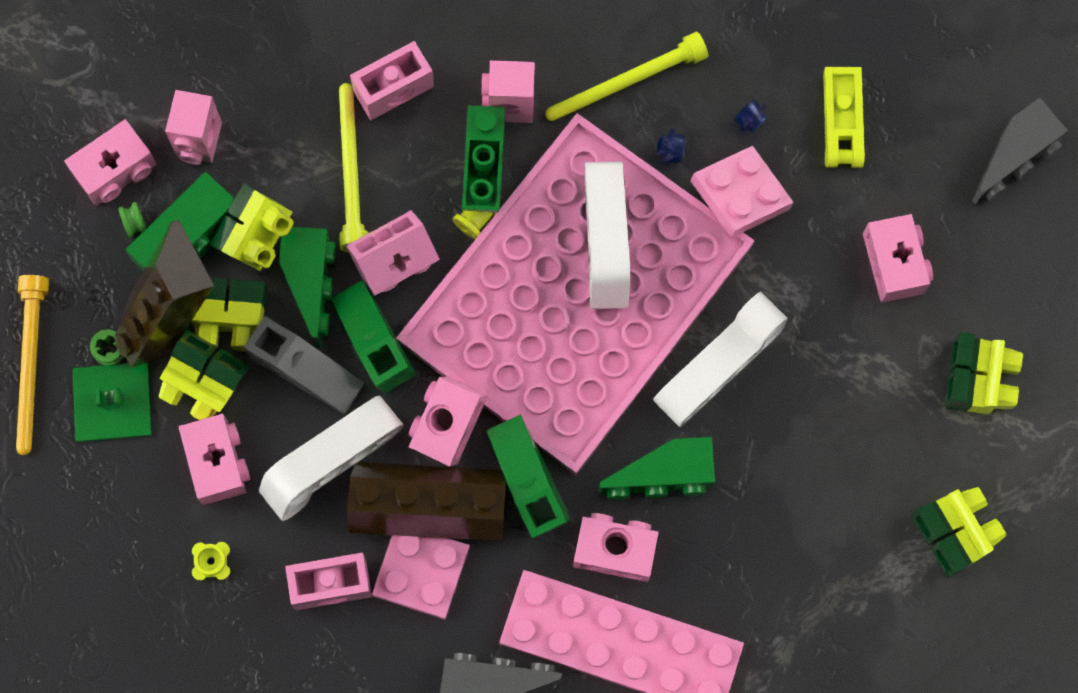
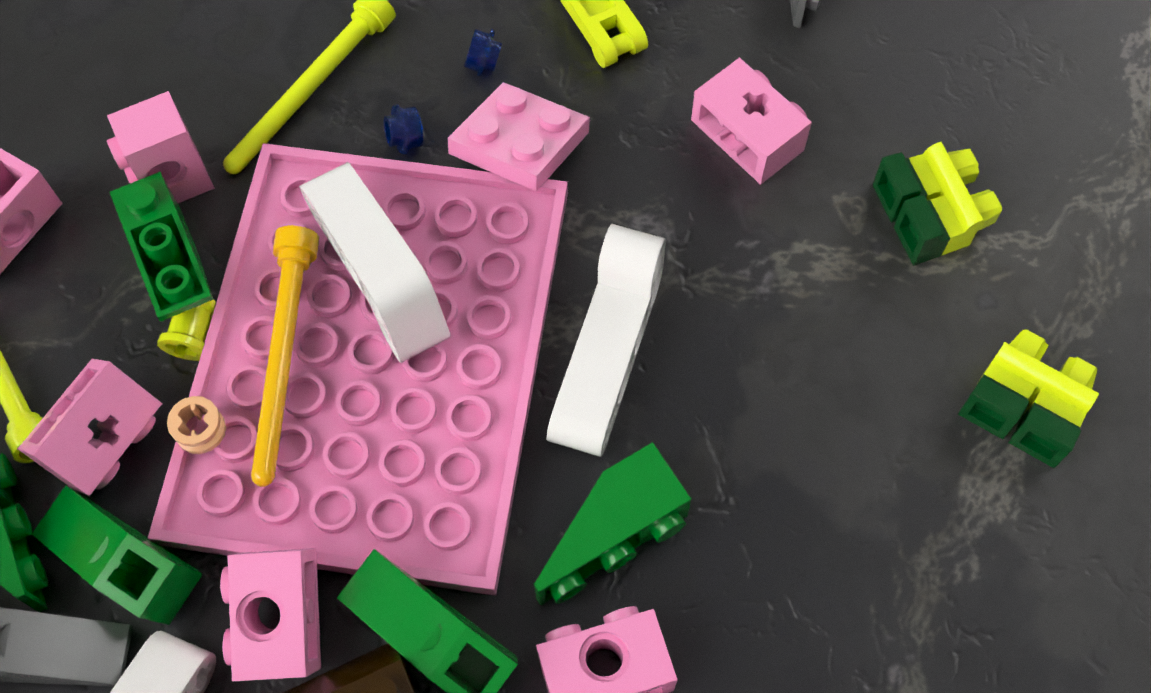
camera: 25 degrees left, 10 degrees down
(465, 287) = (184, 411): none -> light nougat bush
(561, 204) = (294, 251): none -> yellow piece

